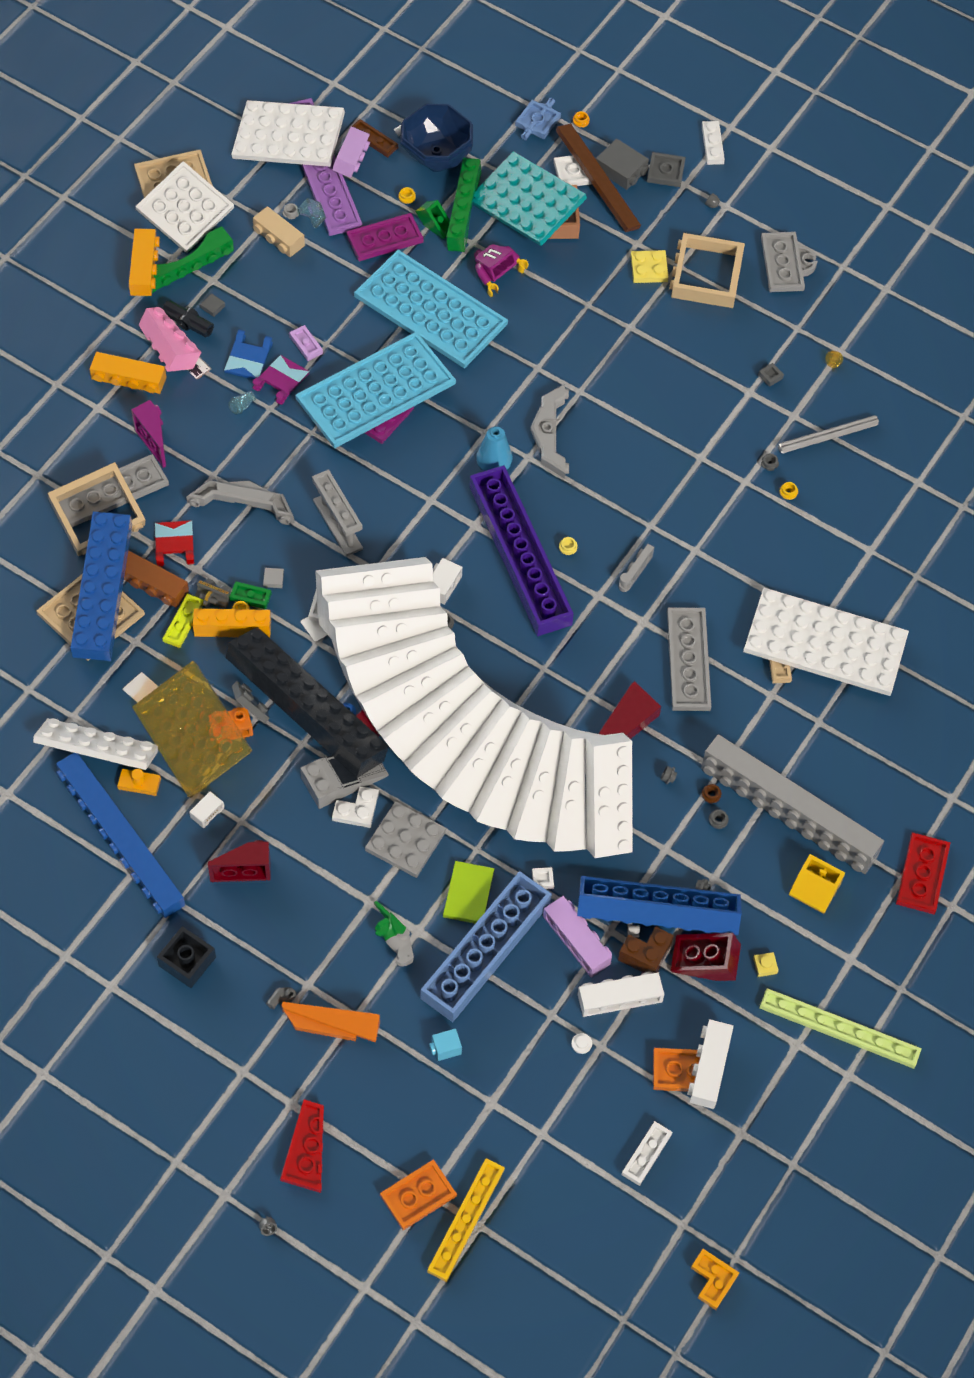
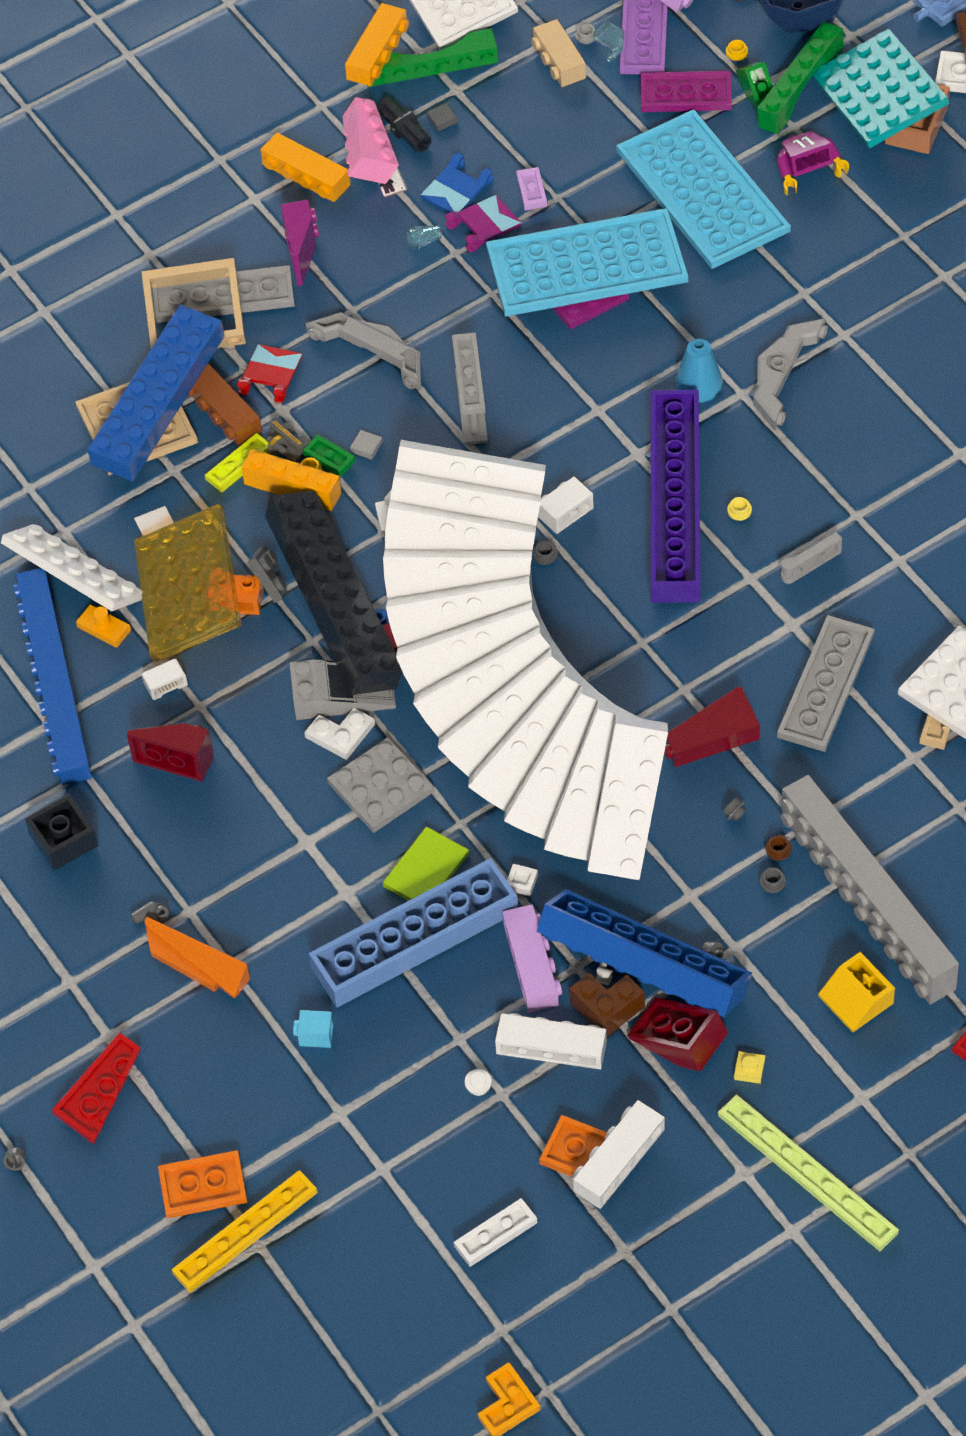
camera: 30 degrees right, 5 degrees down
(395, 935) = (313, 888): animal -> none

